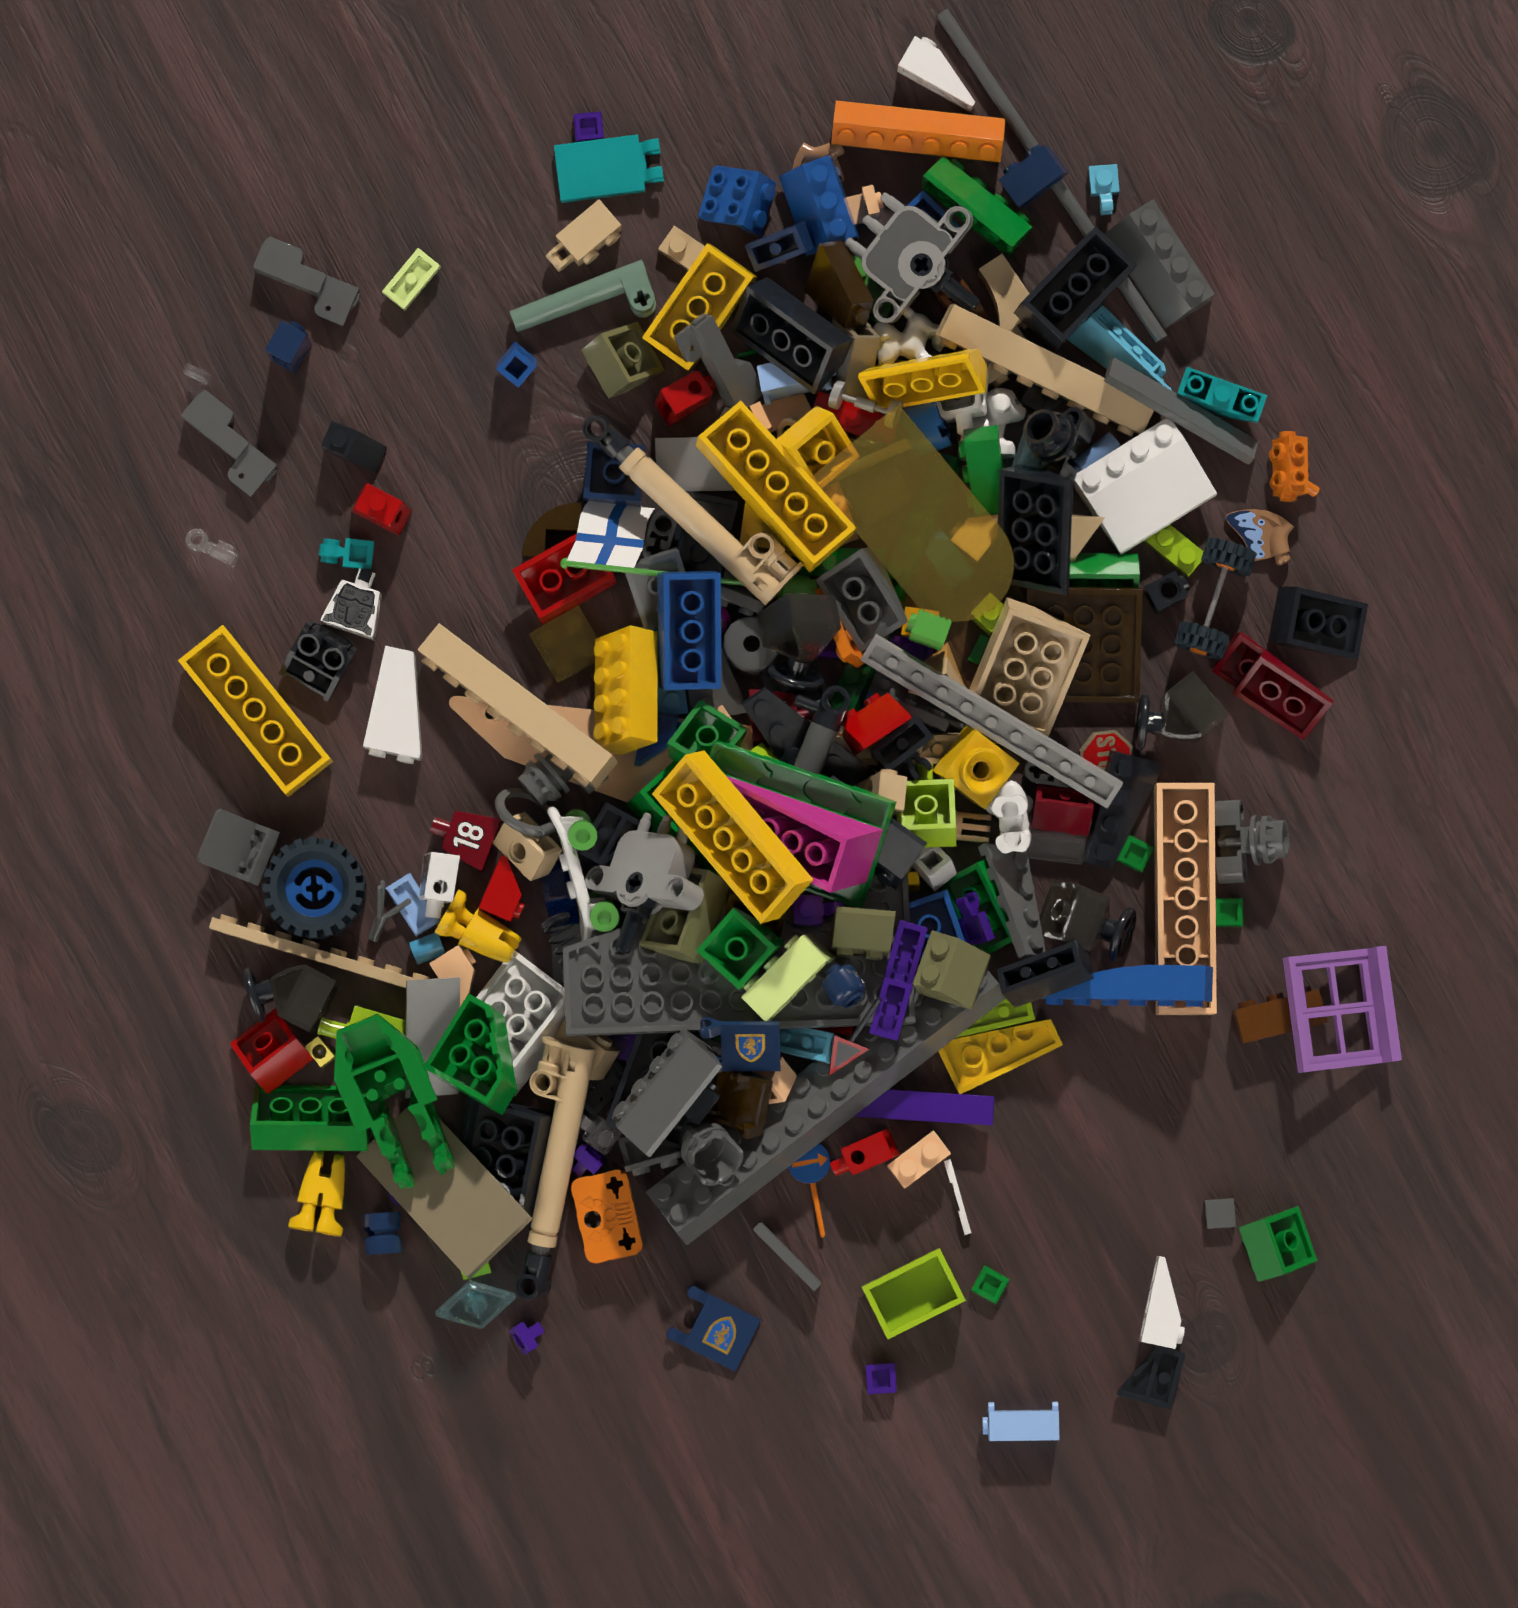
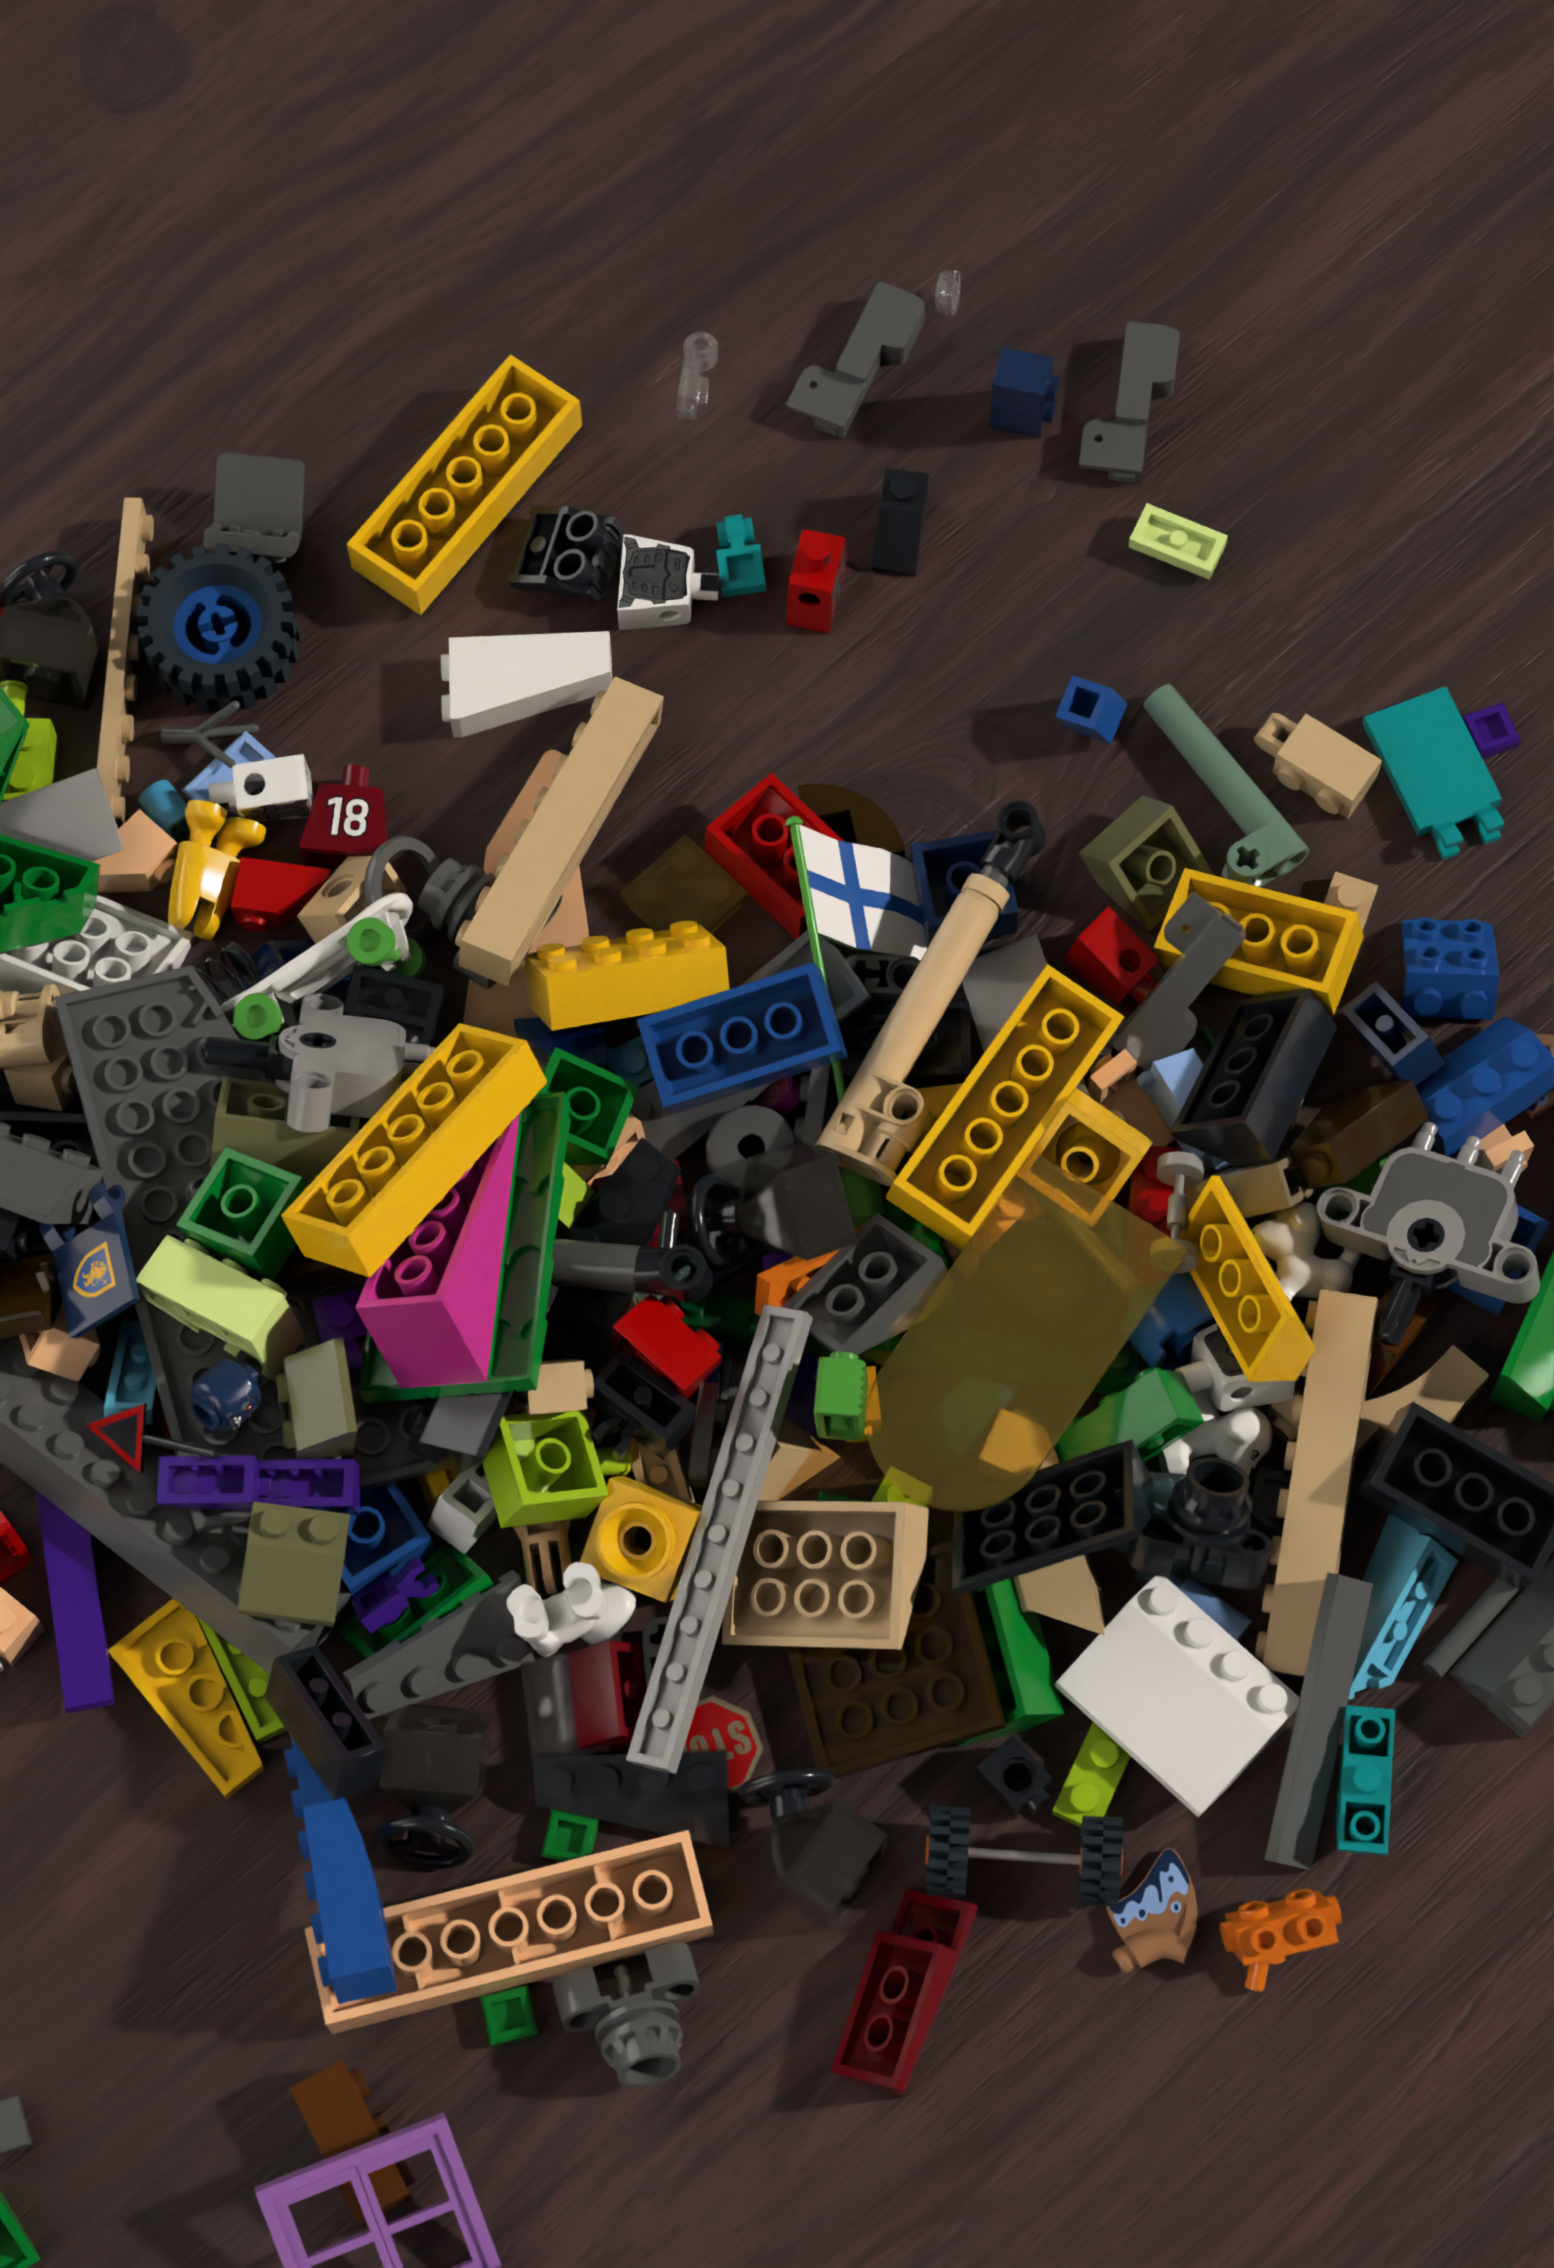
camera: 80 degrees right, 15 degrees down
(1318, 622) = (1033, 2045): black slope -> none

